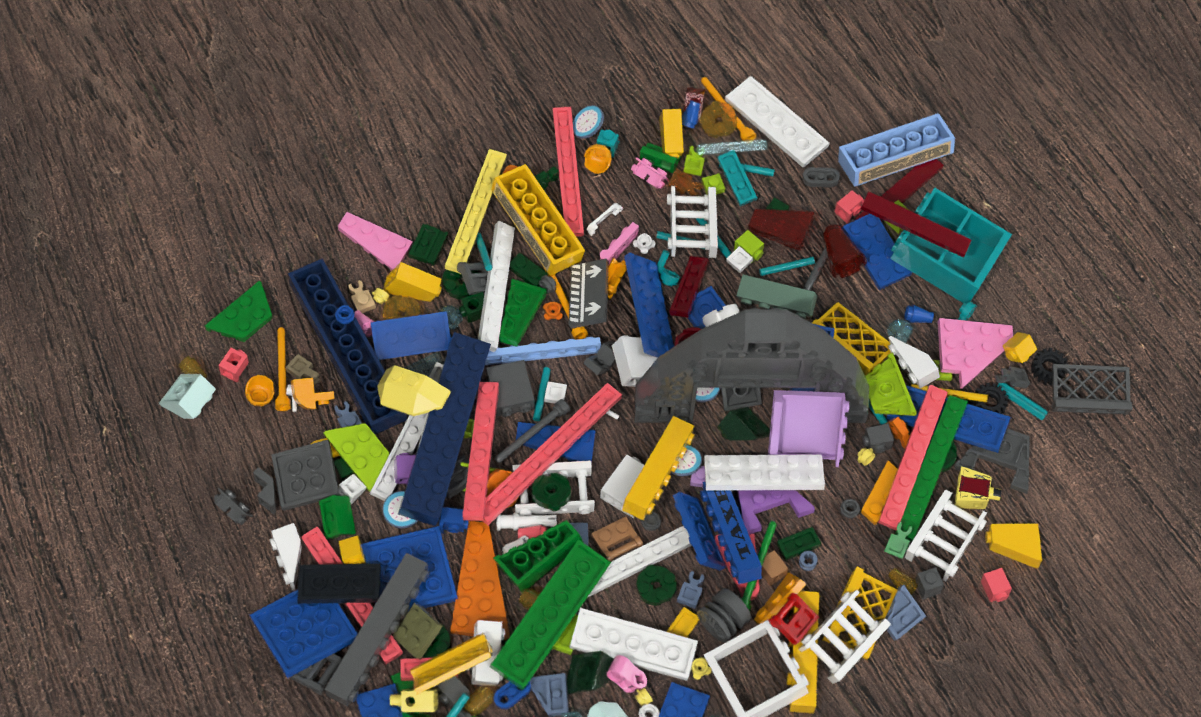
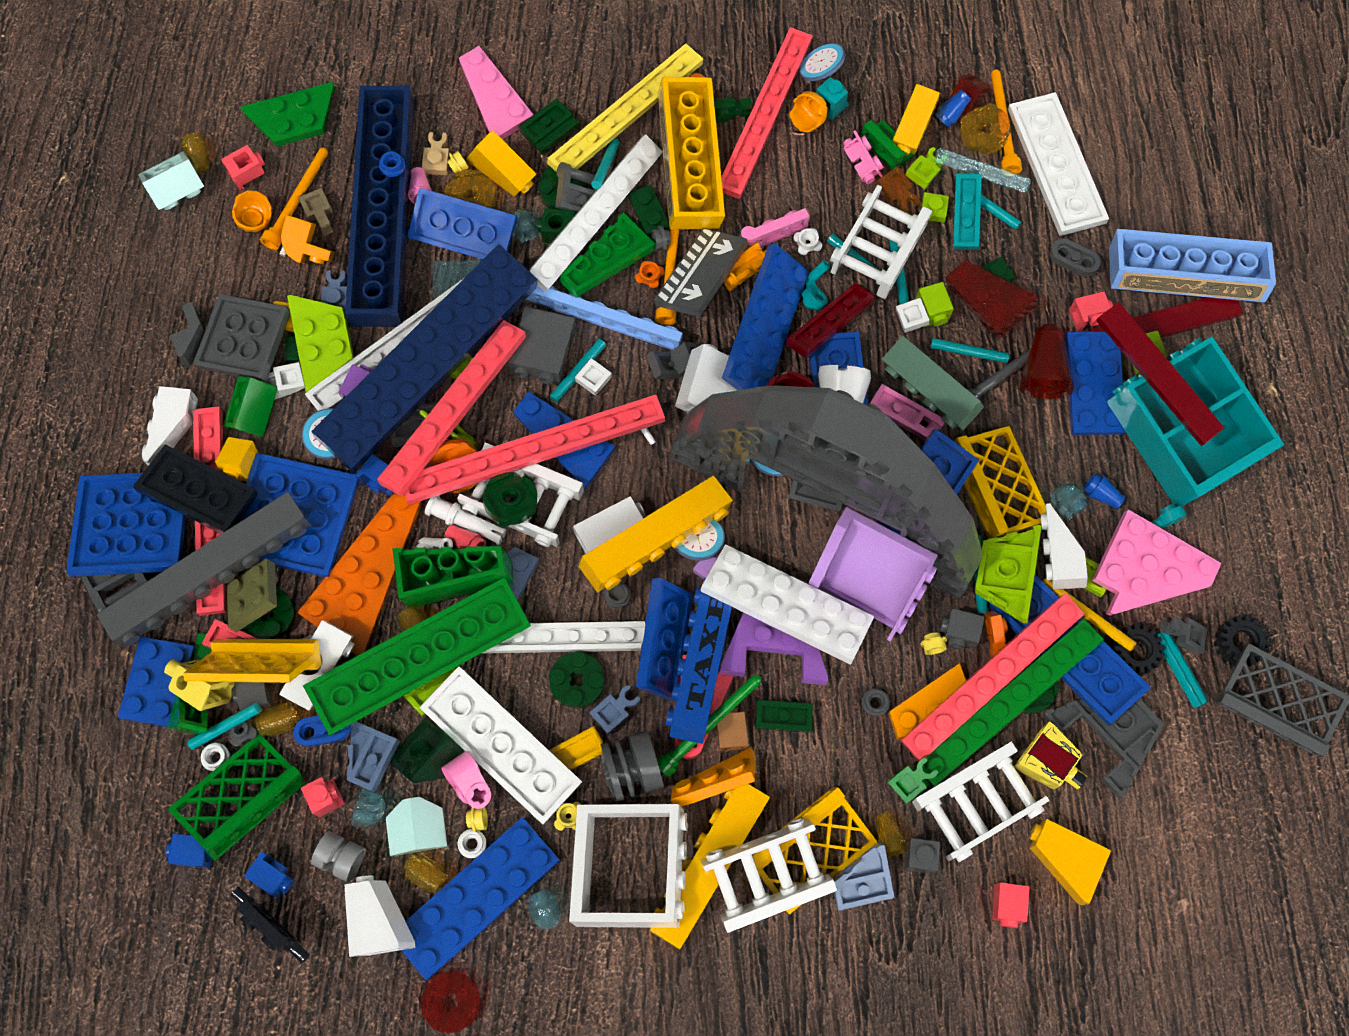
camera: 30 degrees right, 10 degrees up
(238, 510) = (141, 324): dark grey hinge -> none
(410, 392) = (403, 296): light yellow wedge -> none
(560, 409) = (582, 400): dark grey piece -> none
(614, 209) = (794, 182): white piece -> none
(615, 534) = (562, 589): medium nougat plate -> none
(743, 425) = (798, 529): clear green slope -> none
(799, 623) = (716, 829): red plate -> none
(808, 567) = (791, 749): sand blue bush -> none
(1019, 347) = (1214, 598): yellow brick -> none

